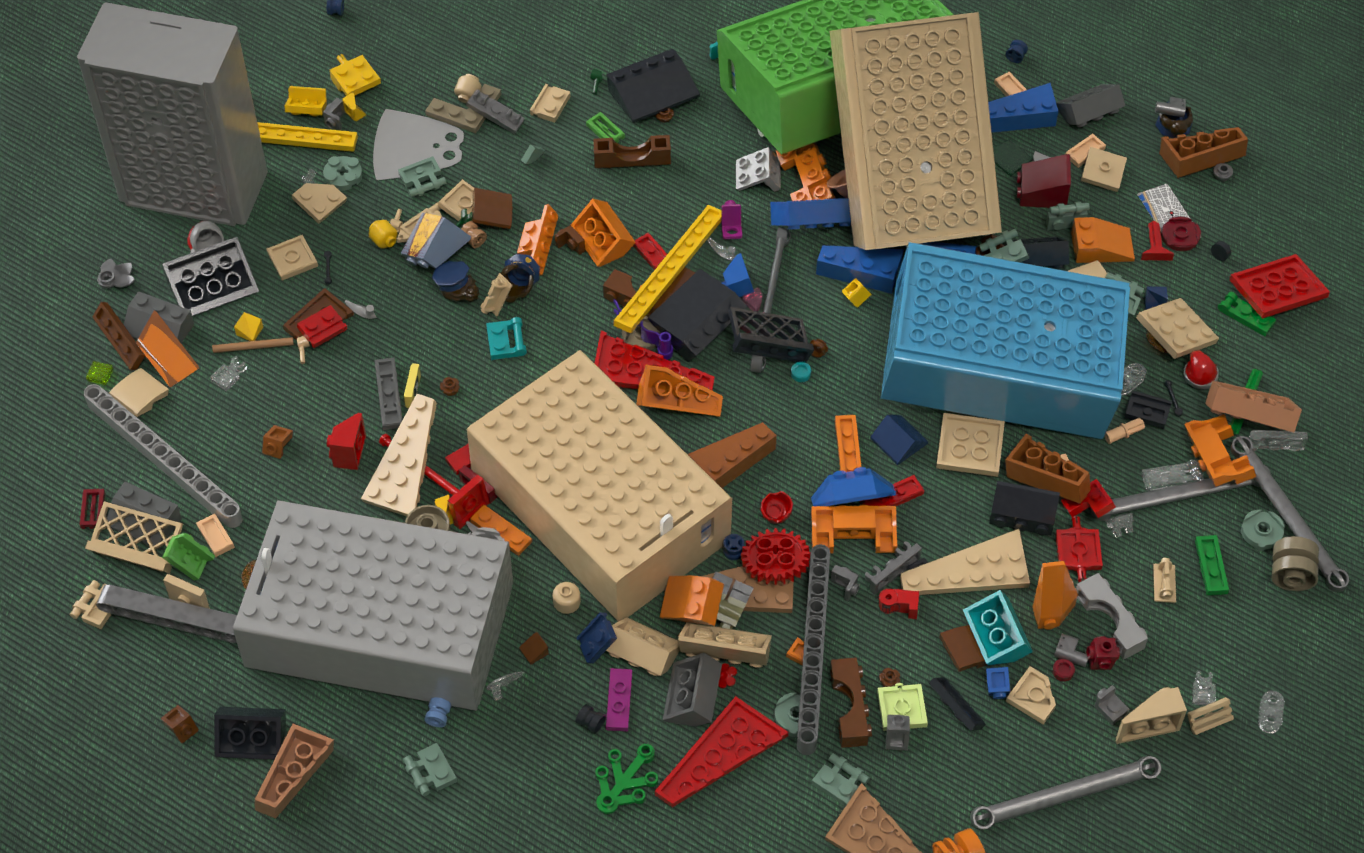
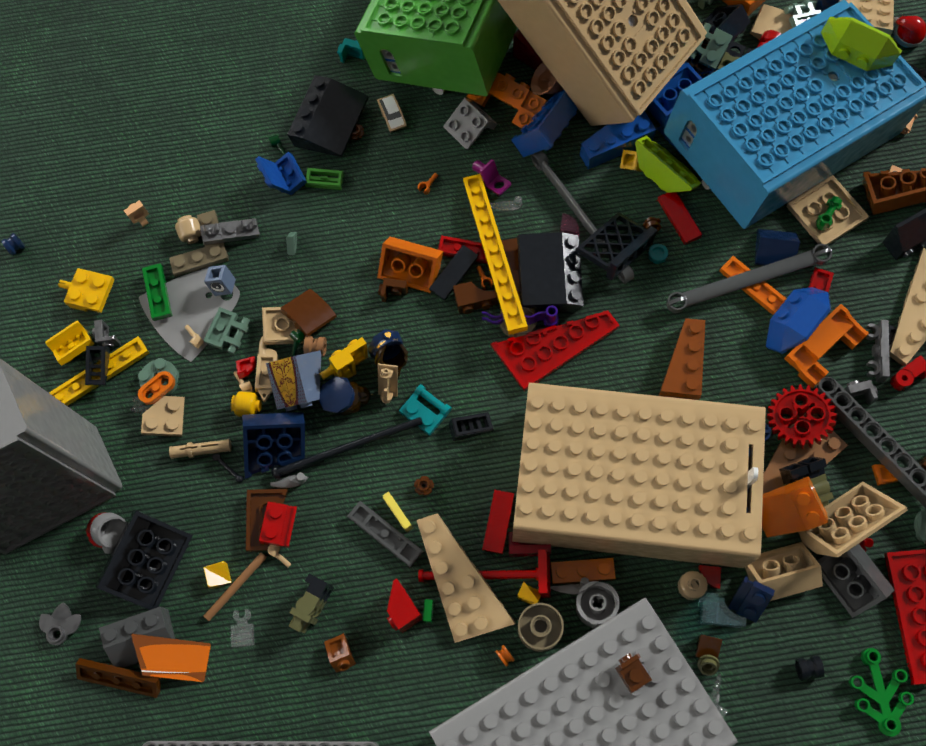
camera: 35 degrees left, 15 degrees up
(99, 373) = (133, 723): clear neon green tile -> none
(139, 392) = (184, 712): tan slope -> none
(290, 390) = (310, 604): none -> olive hips
(292, 257) = (190, 483): tan tile -> none
(313, 115) = (90, 352): none -> black slope
(315, 235) = (191, 450): none -> tan pin
(332, 173) = (156, 386): none -> orange plate
(351, 108) = (113, 318): yellow slope -> none
(364, 463) = (428, 611): none -> green tile
(375, 271) = (272, 440): none -> dark blue wedge
(388, 307) = (279, 472): none -> black bar
(393, 167) = (196, 341): none -> tan hand
(400, 114) = (157, 292): none -> green plate
(409, 210) = (245, 366): none -> red tile
(442, 48) = (137, 212): none -> light nougat plate
(445, 567) = (632, 672): none -> reddish brown bracket
(451, 138) = (220, 280): none -> sand blue brick
(482, 257) = (344, 361): none -> yellow plate
(517, 377) = (454, 422): none -> black slope
(521, 657) = (708, 664): none -> olive plate
(538, 237) = (364, 307): orange bracket -> none
(550, 103) = (259, 193): tan plate -> none
(563, 629) = (716, 613): none -> clear light blue arch
(574, 103) = (283, 174): none -> blue bracket
(590, 608) = (712, 575): none -> red tile
(619, 699) = (808, 631): magenta plate -> none
(628, 263) = (454, 272): none -> black tile
(652, 152) = (353, 194): reddish brown arch -> none
(670, 391) = (597, 349): orange wedge -> none
(673, 191) = (427, 184): none -> orange hand
(705, 120) = (391, 113): none -> slope
(737, 277) = (544, 217): blue slope -> none
(776, 507) = (758, 375): red hair -> none
(847, 360) = (679, 217): none -> red tile
(848, 438) = (749, 278): none -> dark grey piece
(872, 309) = (663, 167): none -> lime wedge
(954, 441) = (825, 220): none -> green bar
(1089, 318) = (860, 43): none -> lime wedge

